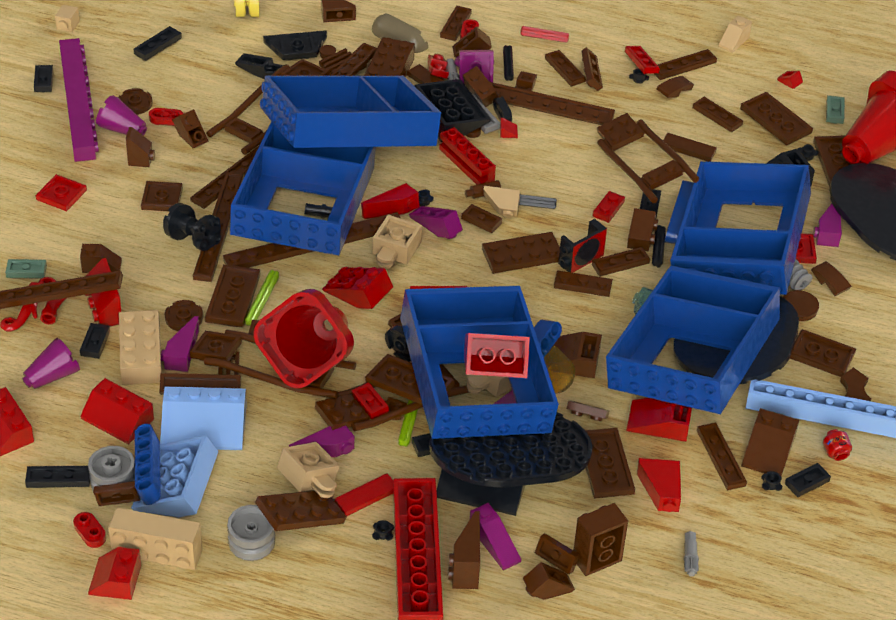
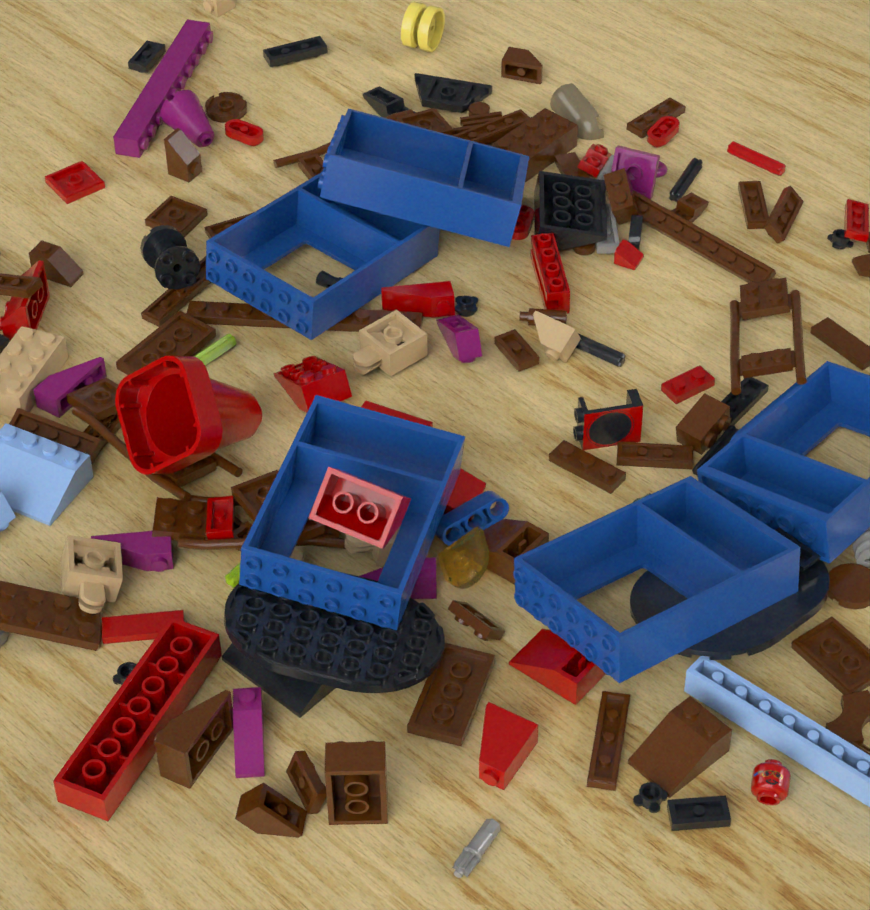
camera: 30 degrees right, 0 degrees up
(181, 313) = (104, 347): reddish brown tile -> none
(190, 129) = (258, 152): reddish brown slope -> none
(474, 40) = (658, 142): reddish brown slope -> none
(521, 252) = (535, 405): reddish brown plate -> none

